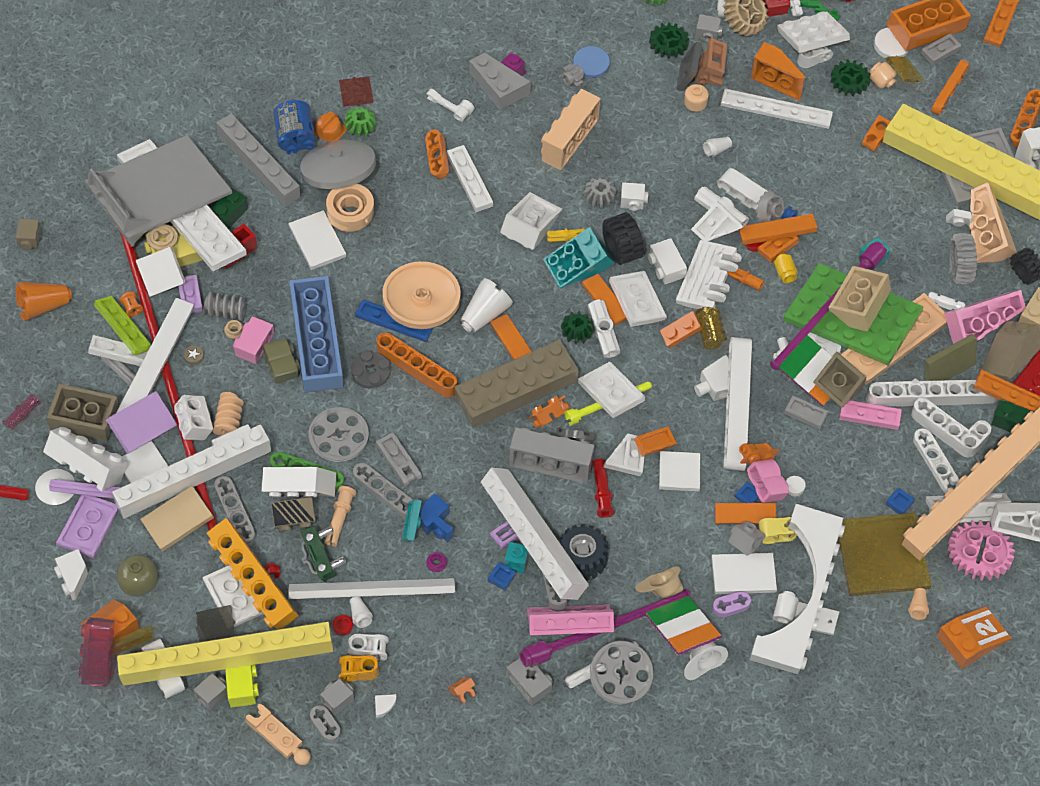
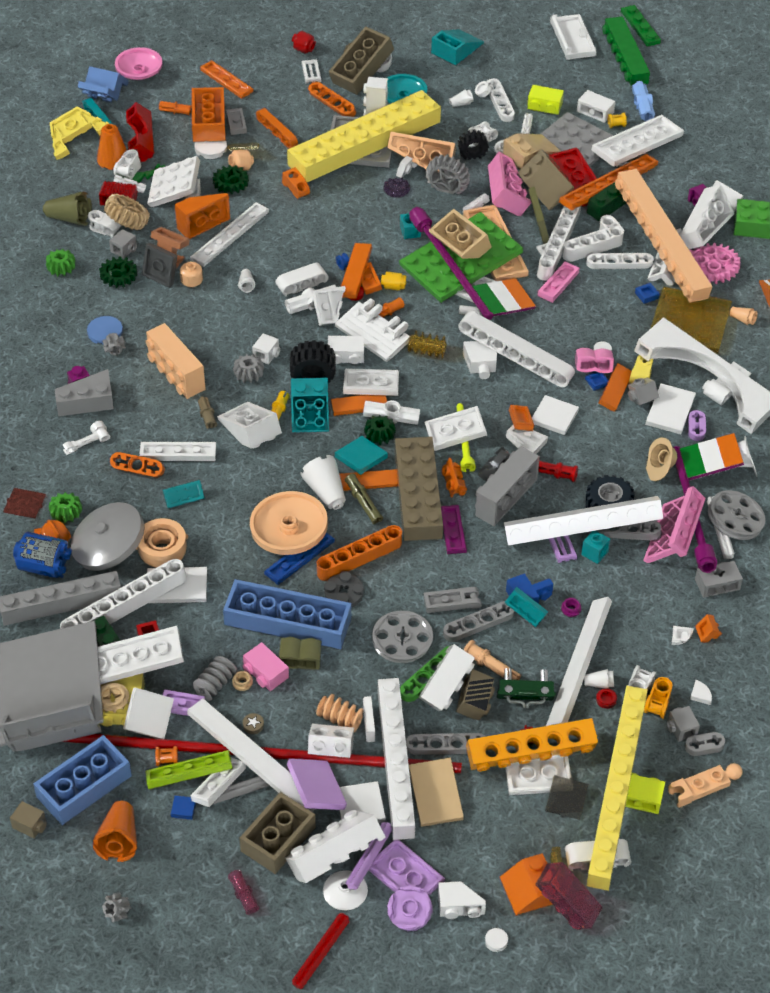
camera: 65 degrees left, 10 degrees down
(48, 616) = (496, 939): none -> white tile
(51, 539) = (410, 908): none -> lavender tile
(78, 253) = (82, 779): none -> medium blue brick
(85, 336) = (183, 808): none -> blue tile
(137, 575) = (483, 846): olive cylinder -> none
(211, 691) = (639, 821): light grey brick -> none
(279, 208) = (132, 595): none -> white beam
(420, 202) = (183, 494): none -> teal plate
(447, 667) = (681, 634): none -> white tile
(486, 432) = (453, 530): none -> magenta tile
(489, 338) = (363, 498): none -> olive pin
(501, 576) = (607, 565): blue plate -> none
(529, 182) = (207, 412): none -> dark tan axle
(538, 323) = (361, 455): none -> teal tile
(681, 329) = (420, 363): orange plate -> none
(756, 452) = (567, 355): orange hinge -> none
(770, 206) = (333, 265): light grey piece -> none
(806, 412) = (537, 318): light grey plate -> none
(840, 380) = (525, 280): dark tan slope -> none
(932, 229) = (395, 191): none -> clear purple gear

